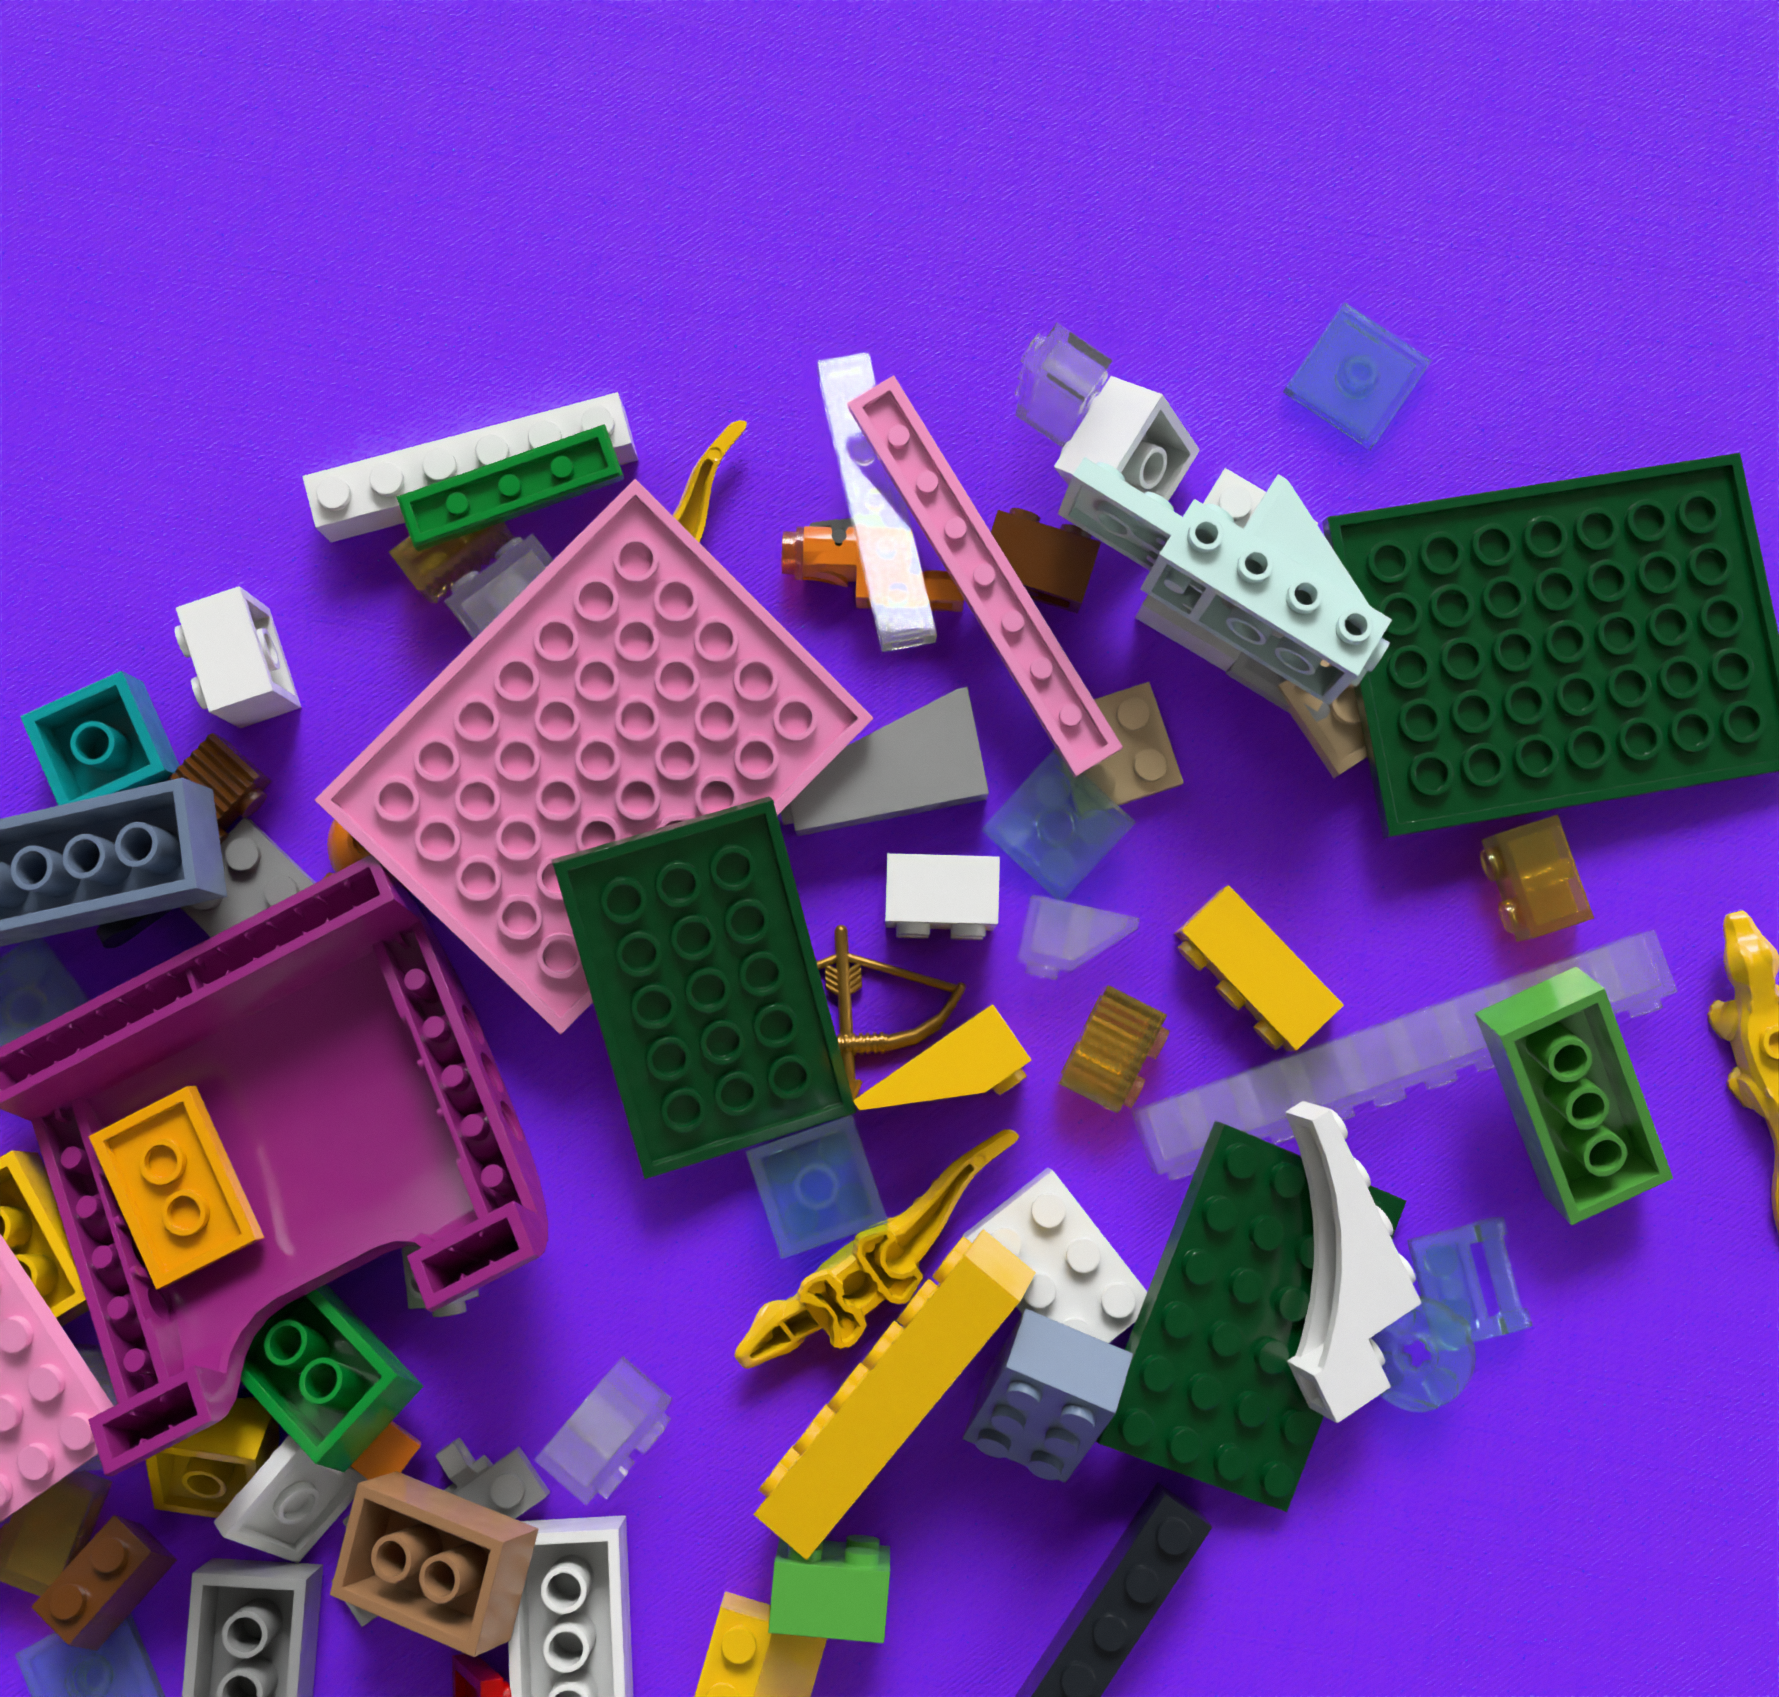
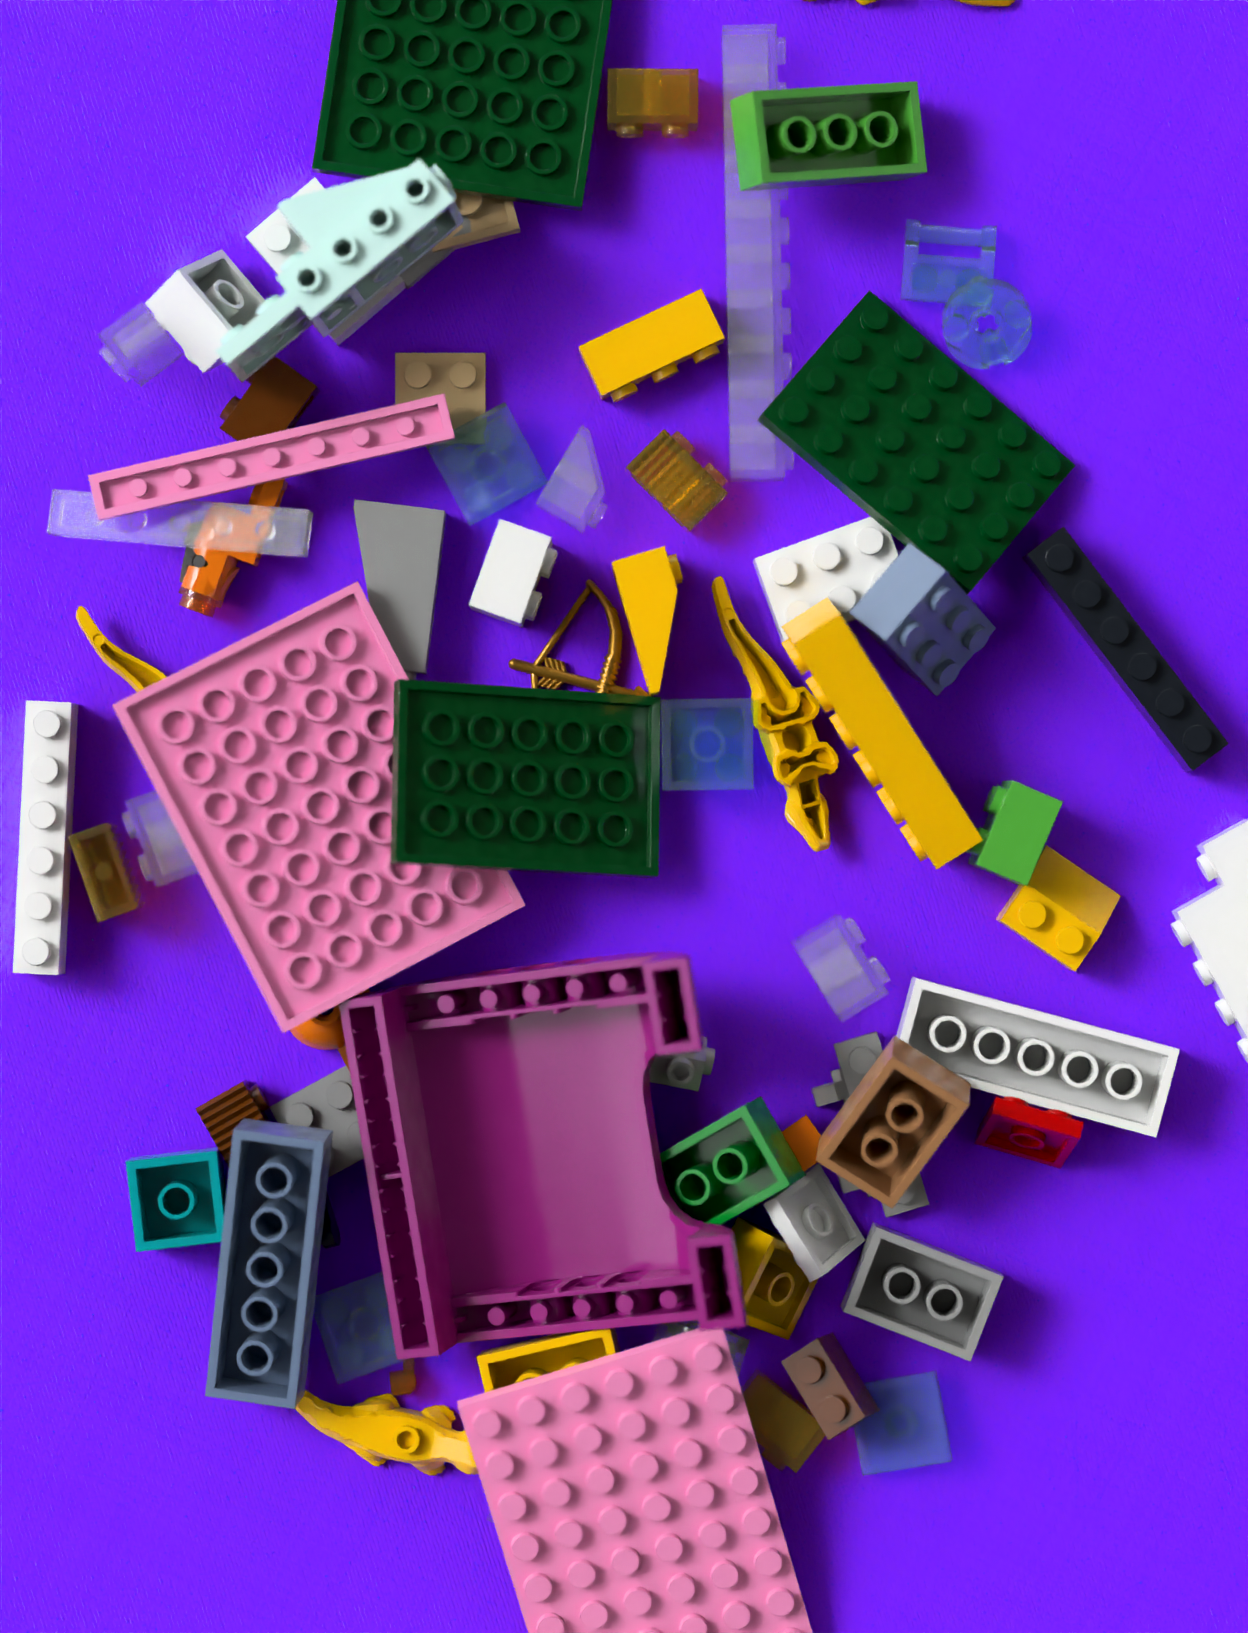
camera: 70 degrees left, 5 degrees up
(176, 1187) = (546, 1238): light orange plate -> none
(236, 658) = (143, 1070): white brick -> none
(510, 488) = (79, 808): green tile -> none
(1356, 1274) = (909, 350): white arch -> none
(1357, 376) = (200, 99): clear light blue plate -> none

